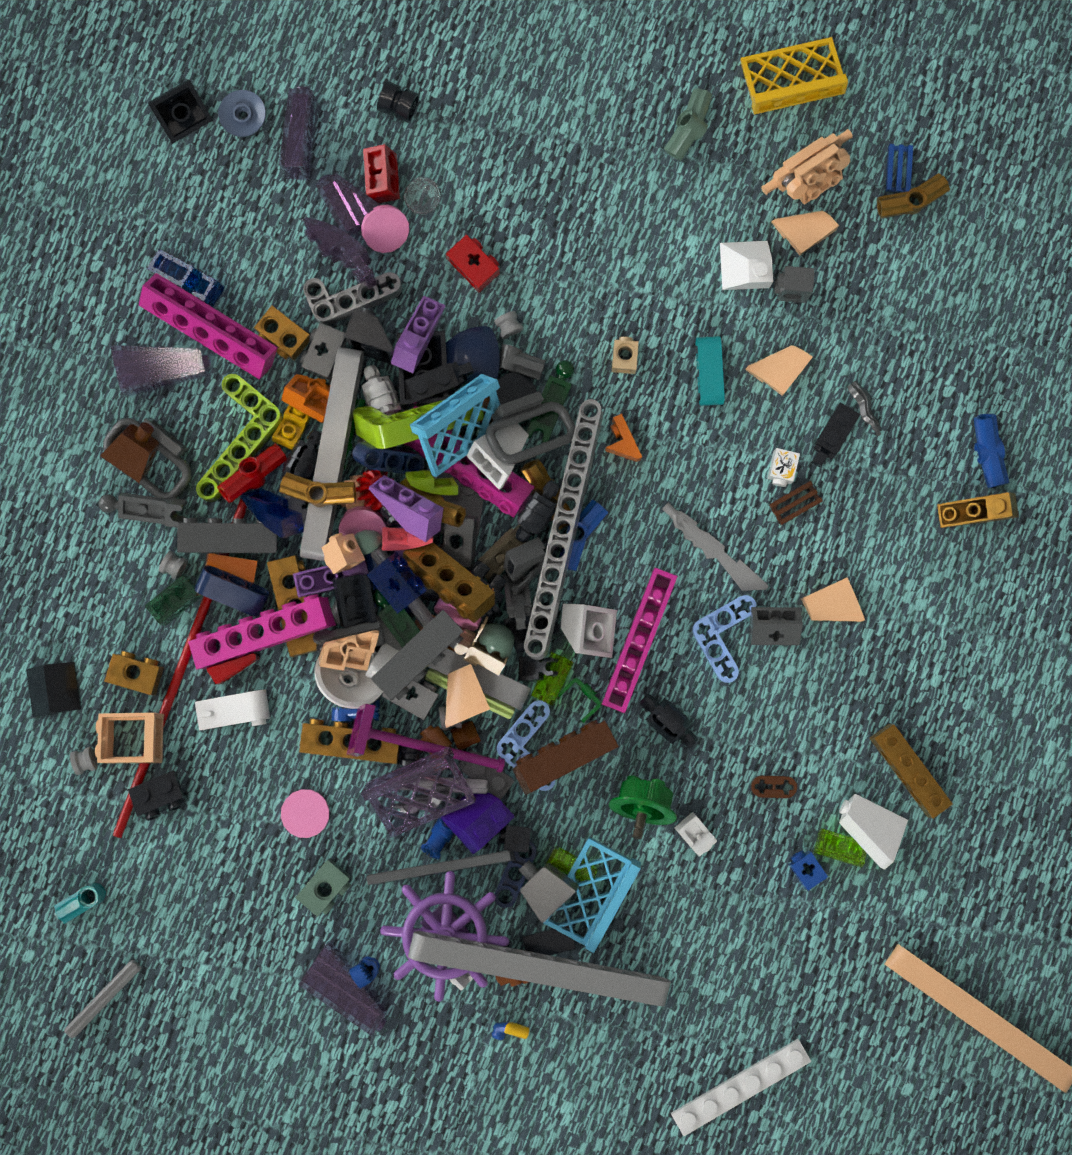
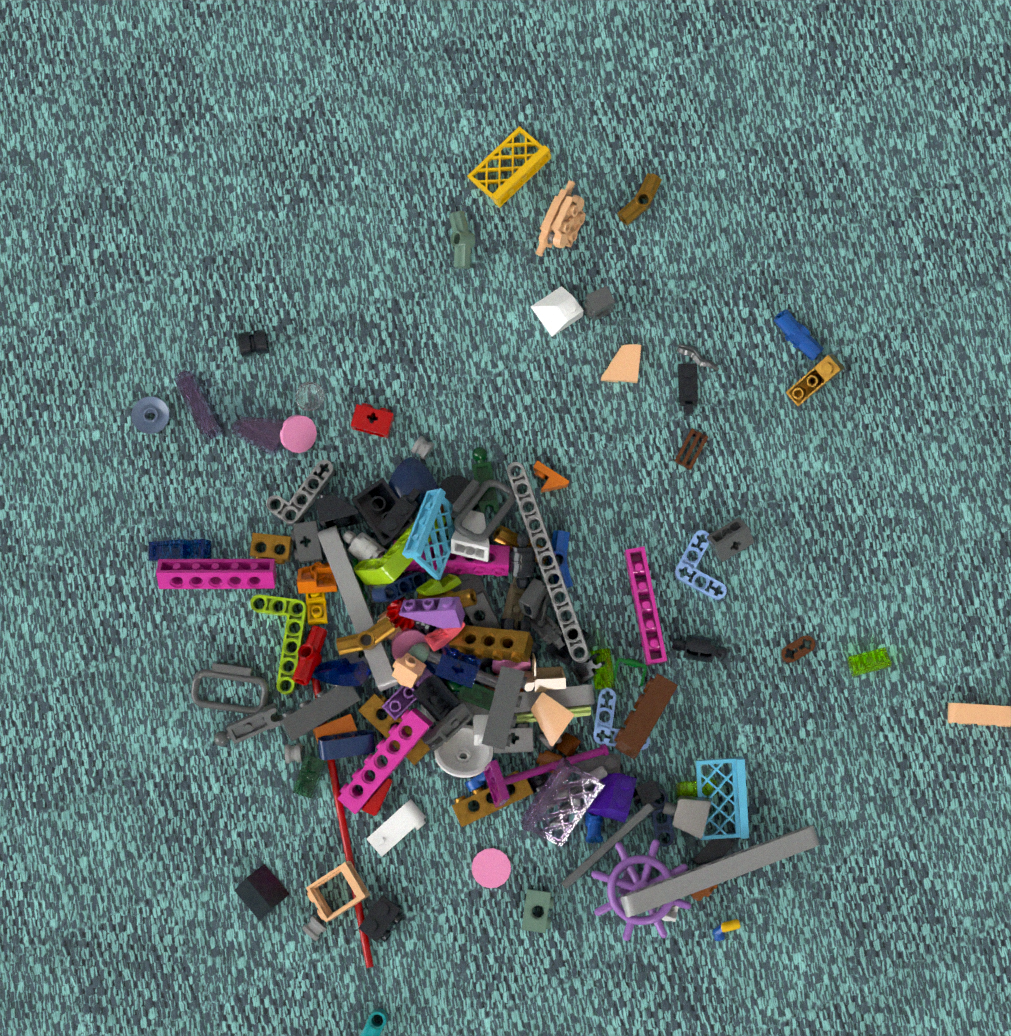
camera: 30 degrees left, 5 degrees down
(120, 668) = (303, 852): pearl gold brick -> none
(133, 451) = (217, 690): reddish brown torso -> none
(152, 368) = (197, 624): clear purple slope -> none
(180, 111) = (107, 439): black slope -> none
(303, 456) = (338, 622): black piece -> none
(333, 985) = (591, 973): clear purple slope -> none
(340, 246) = (275, 463): clear purple slope -> none
(349, 651) = (454, 735): light nougat slope -> none
(361, 975) = (601, 954): blue connector -> none
(381, 173) = (272, 398): red brick -> none
(417, 334) = (366, 491): medium lavender slope -> none
(497, 638) = (549, 663): sand green hair -> none
(515, 361) = (444, 468): dark grey piece -> none
(589, 629) = (606, 619): white slope -> none
(625, 366) = (517, 428): tan brick -> none
(645, 803) = (718, 714): green piece -> none
(696, 834) = (766, 714): white bracket -> none
(710, 371) = (579, 395): teal beam -> none
(712, 548) = (654, 514): light grey sword -> none
(740, 1087) = (905, 868): white plate -> none
(783, 467) = (668, 430): white brick -> none
(805, 229) = (582, 263): light nougat slope -> none
(814, 877) = (863, 688): blue brick -> none
(834, 603) = (759, 500): light nougat slope -> none
(873, 828) = (882, 634): white slope -> none
(900, 148) = (612, 172): blue tile -> none
(911, 771) = (882, 580): pearl gold brick -> none

